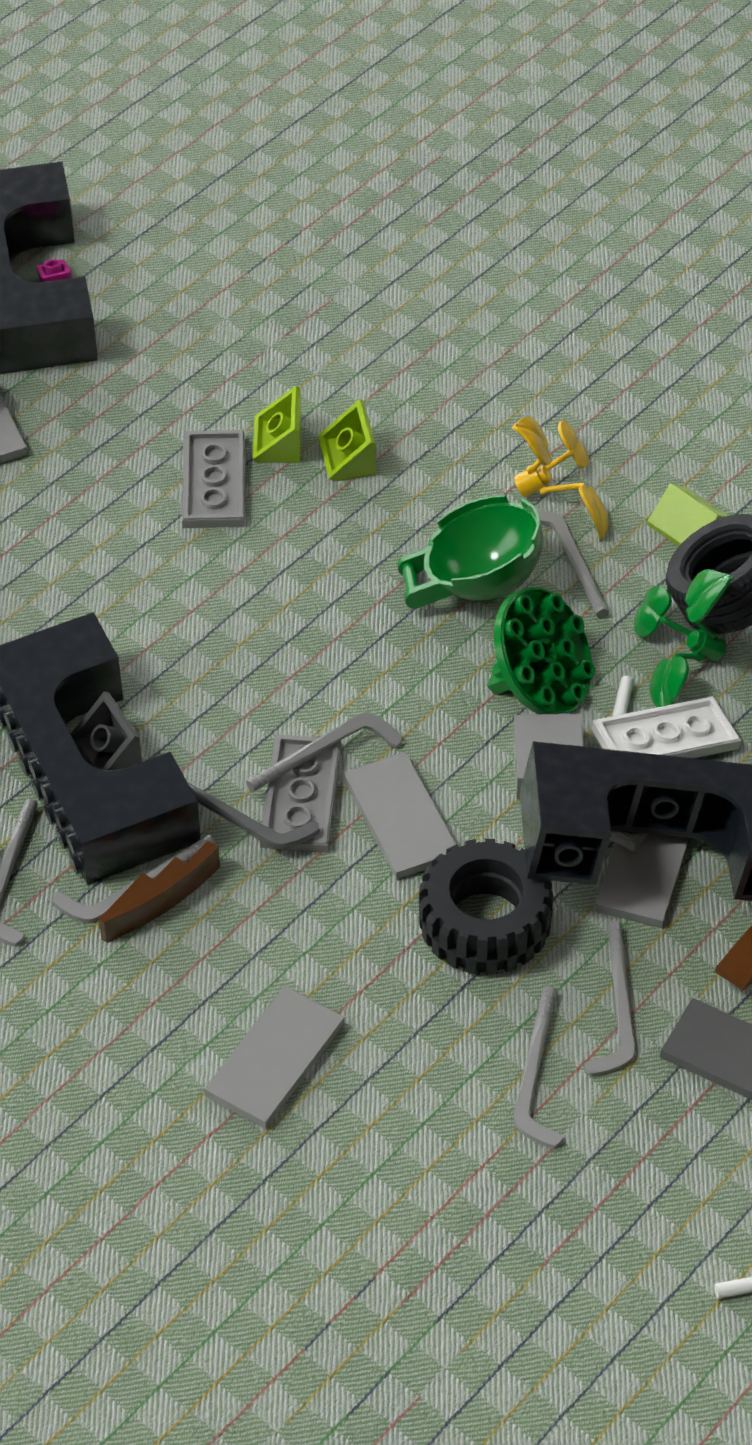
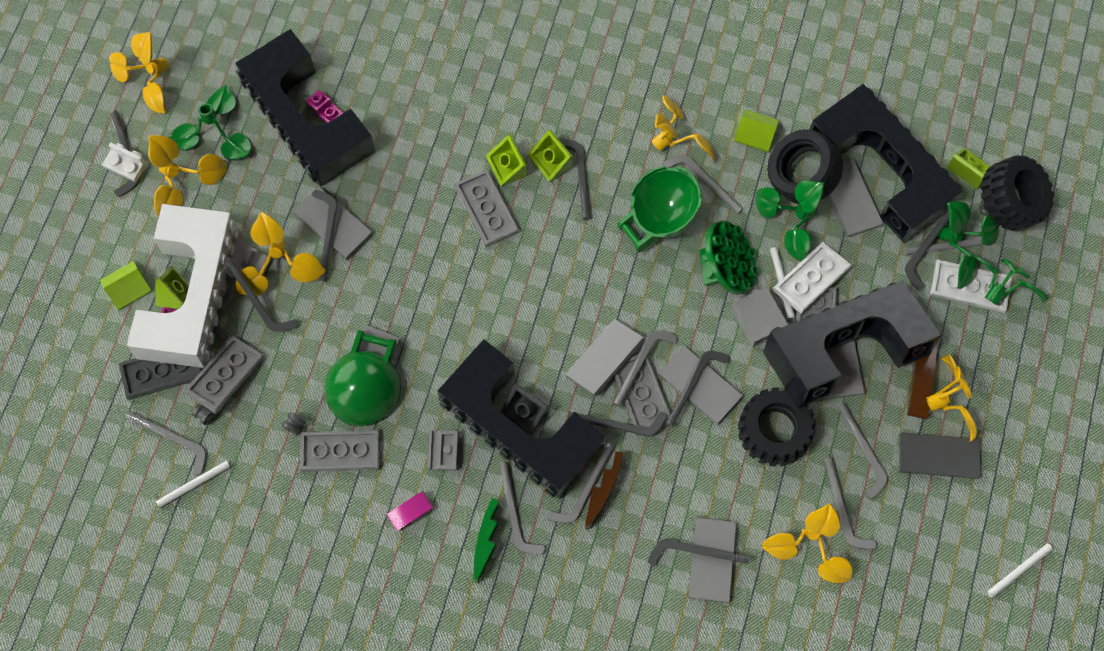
camera: 25 degrees left, 20 degrees up
(213, 1000) = (666, 543): none -> dark grey piece
(271, 721) = (604, 357): none -> light grey tile
(398, 457) = (577, 147): none -> dark grey piece
(426, 777) = (708, 355): none -> dark grey piece
(469, 1034) = (821, 521): none -> yellow plant

